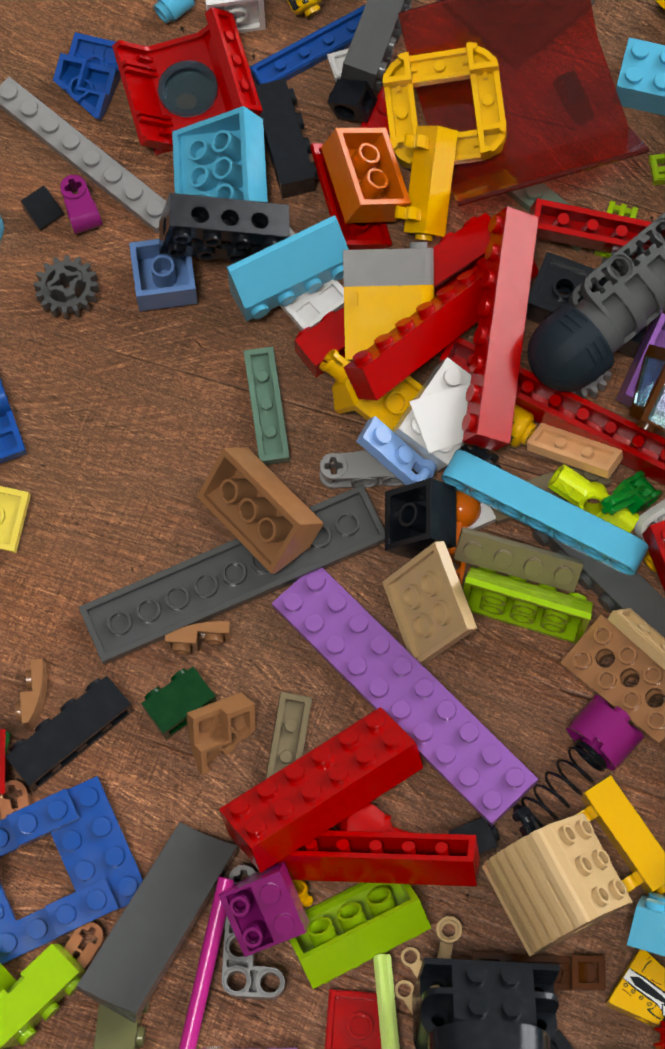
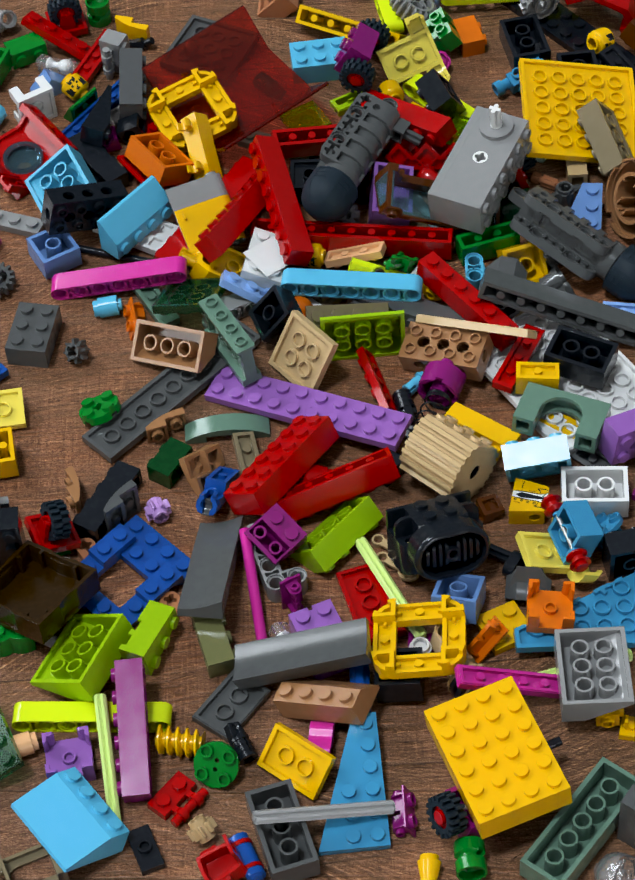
camera: 20 degrees left, 20 degrees down
(69, 766) = (122, 505): none -> dark grey slope
(82, 404) = (33, 335): none -> dark grey brick
(116, 557) = (99, 409): none -> green plate
(128, 457) = (76, 351): none -> dark grey gear
(130, 778) = (157, 510): none -> lavender gear
(200, 395) = (107, 306): none -> medium azure brick
(221, 782) = (215, 485): none -> blue plate
(224, 290) = (101, 253): none -> black bar
(231, 420) = (132, 312): none -> orange hinge
(232, 359) = (119, 278): none -> dark pink beam
(251, 1013) = (291, 593): none -> magenta hinge
(281, 672) = (226, 424): none -> sand green slope
(301, 84) = (97, 124): none -> black slope
(302, 29) = (81, 105): none -> green slope
(311, 435) = (184, 296): none -> clear green plate
(317, 106) = (114, 142): none -> magenta slope
(332, 544) = (232, 342): none -> sand green fence
(517, 678) = (375, 378): none -> red plate
(540, 743) = (404, 402): none -> black hinge
(569, 708) = (412, 385): none -> medium azure pin
(604, 184) = (305, 116): none -> clear neon green tile

